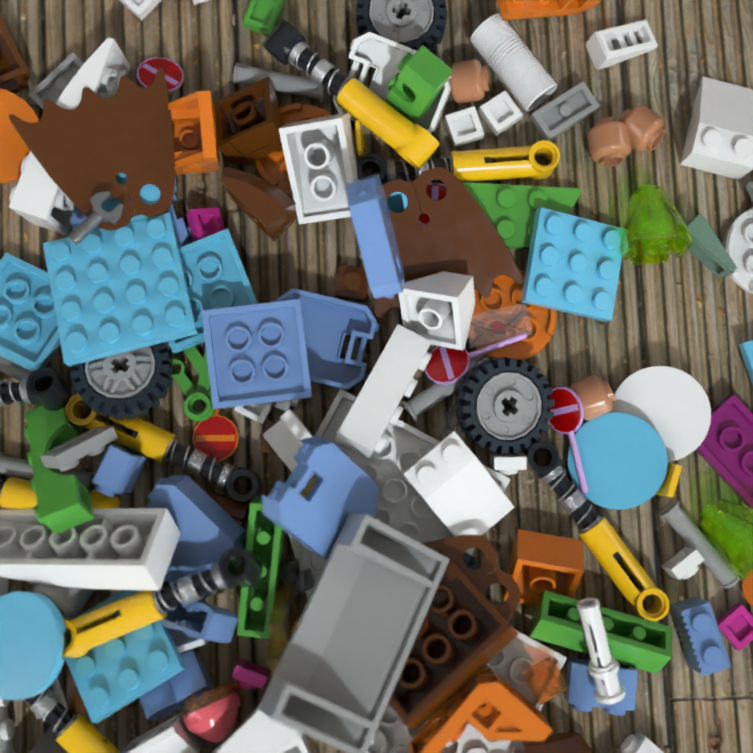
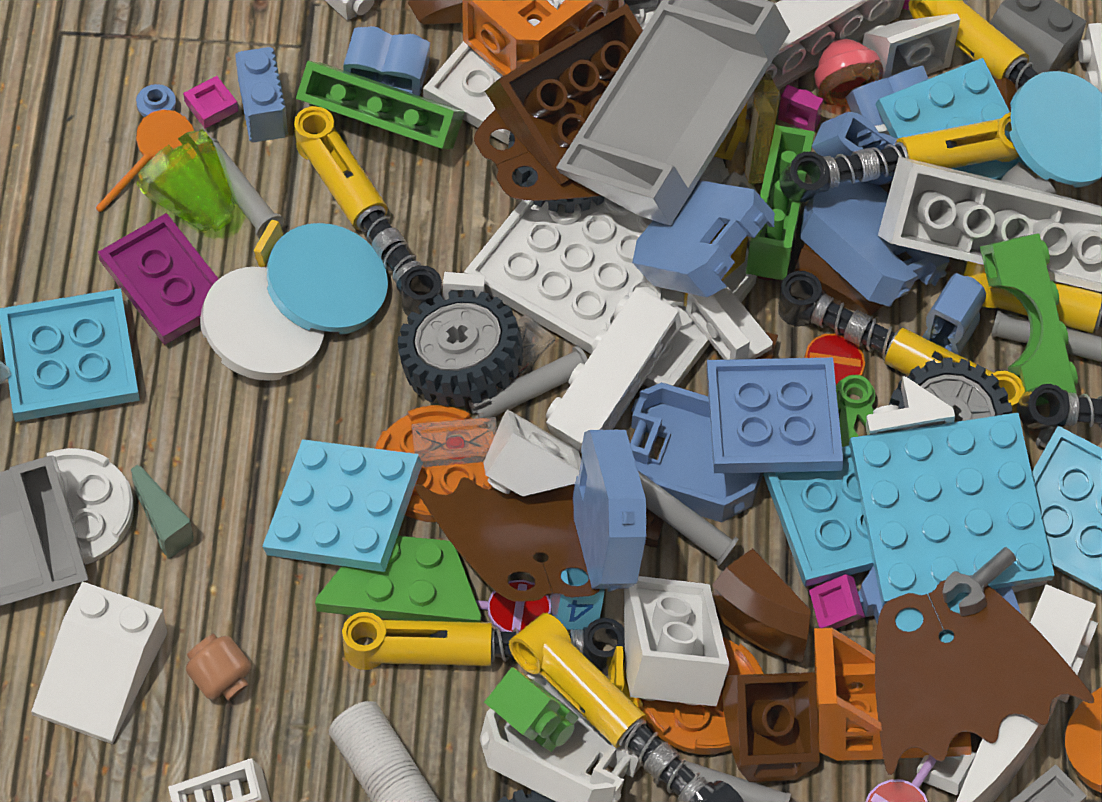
camera: 175 degrees left, 25 degrees down
(67, 454) = (999, 324): light grey plate -> none
(142, 352) = (920, 411): none -> white slope
(325, 278) = (686, 521): none -> light grey pin
(451, 365) = (523, 396): piece -> none
(458, 488) = (536, 262): white slope -> none
(464, 127) = (465, 697): white plate -> none
(469, 81) = (453, 754): nougat head -> none
(500, 113) = (412, 712): white plate -> none
(545, 563) = (435, 179): orange slope -> none
(545, 680) = (453, 66): clear orange plate -> none
(564, 111) = (317, 705): light grey plate -> none
(566, 420) = (378, 326): piece -> none
(595, 396) = (346, 350): nougat head -> none
(602, 665) = (389, 59): white pin -> none
(609, 142) = (268, 651): nougat head -> none
(653, 228) = (230, 535): clear neon green cone -> none
(683, 564) = (266, 167): white plate -> none

